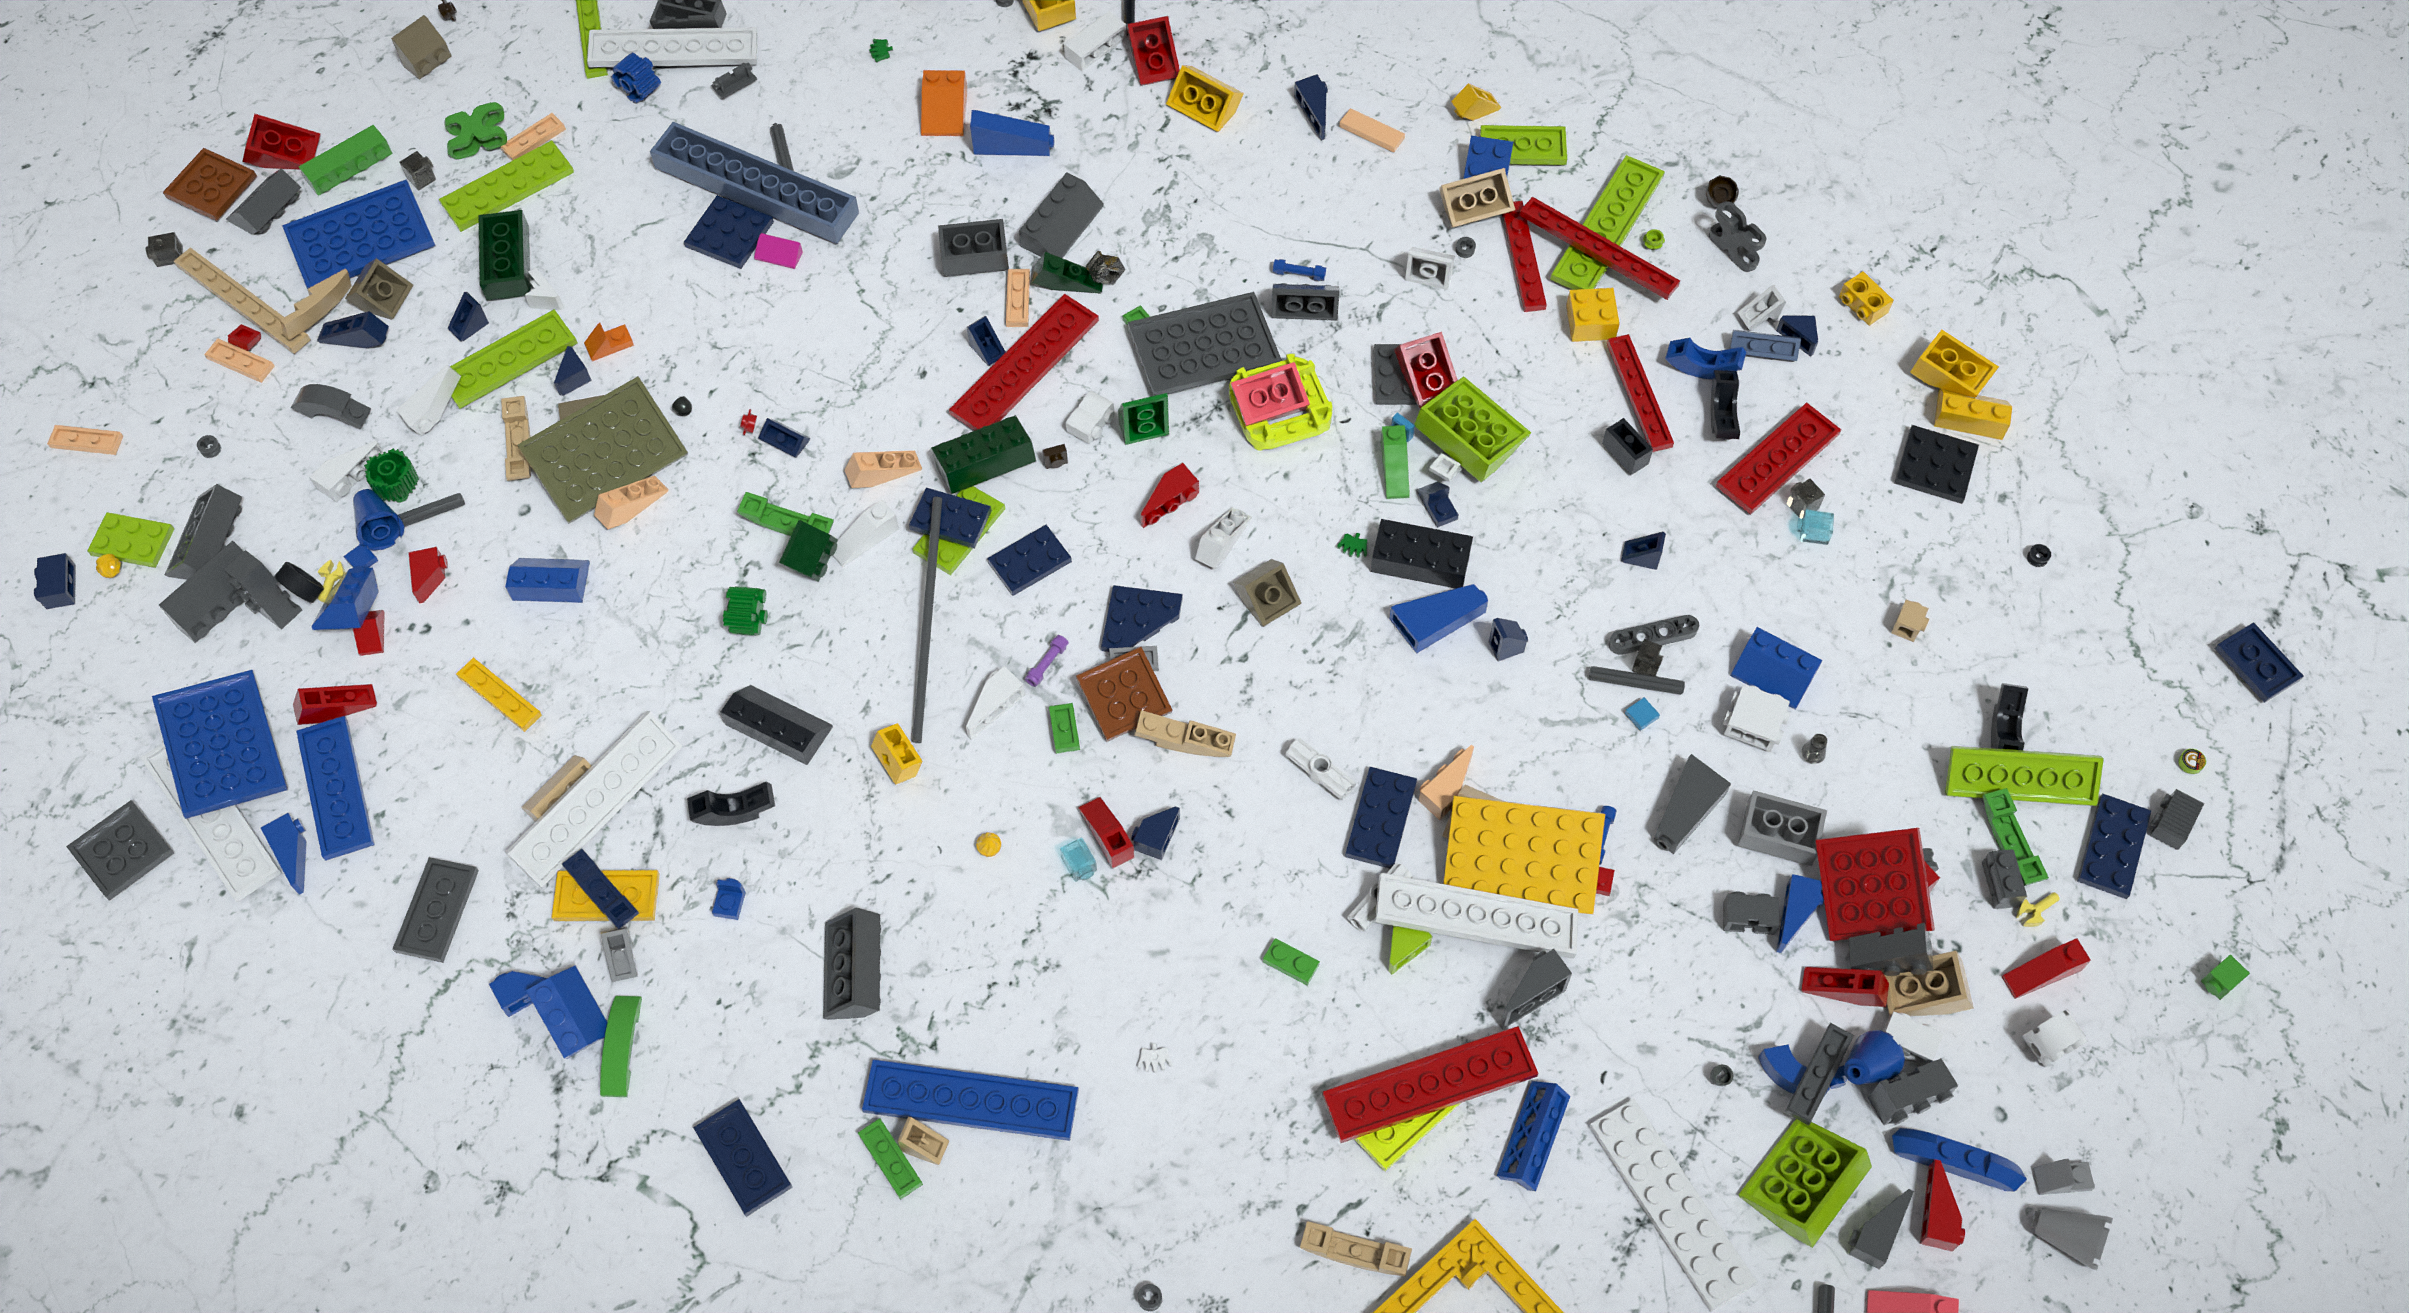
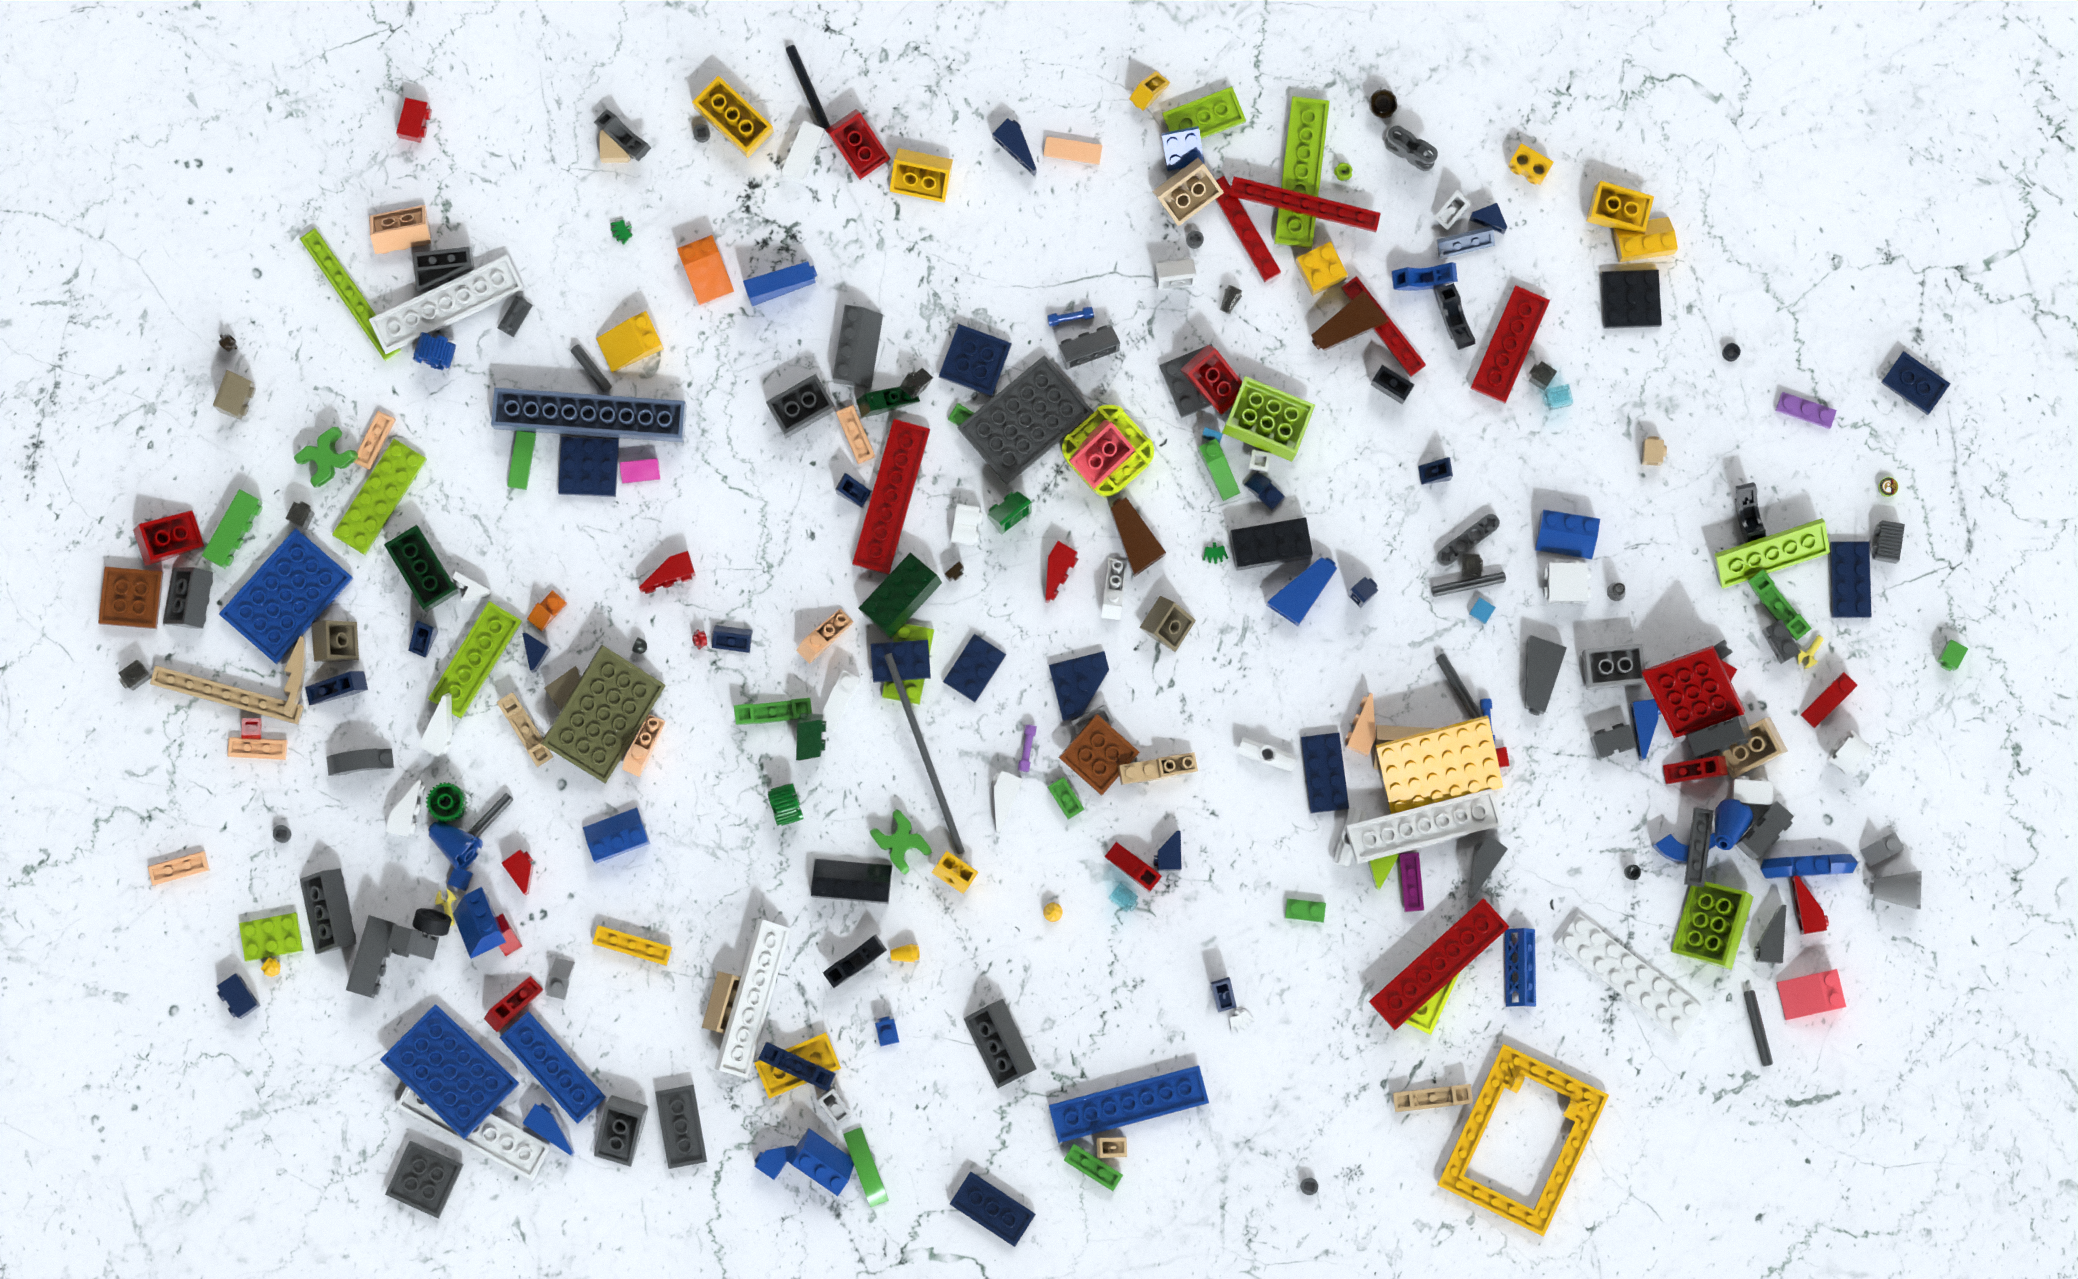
camera: 25 degrees left, 20 degrees up
(366, 884) = (620, 1130): none -> dark grey slope
(404, 696) = (560, 978): none -> light grey slope
(665, 203) = (521, 460): none -> bright green tile
(757, 349) = (671, 570): none -> red slope
(797, 822) = (905, 953): none -> yellow cone
(835, 138) = (629, 342): none -> yellow slope
(854, 701) = (900, 841): none -> bright green piece
(1147, 1014) = (1223, 994): none -> dark blue slope
(1178, 273) = (975, 360): none -> dark blue plate
(1272, 497) = (1136, 538): none -> reddish brown slope
(1435, 979) = (1411, 882): none -> magenta plate
(1480, 310) = (1230, 299): none -> clear smoke cone
(1580, 776) = (1458, 686): none -> dark grey axle
(1602, 371) = (1350, 322): none -> reddish brown slope
(2112, 645) = (1805, 410): none -> medium lavender plate

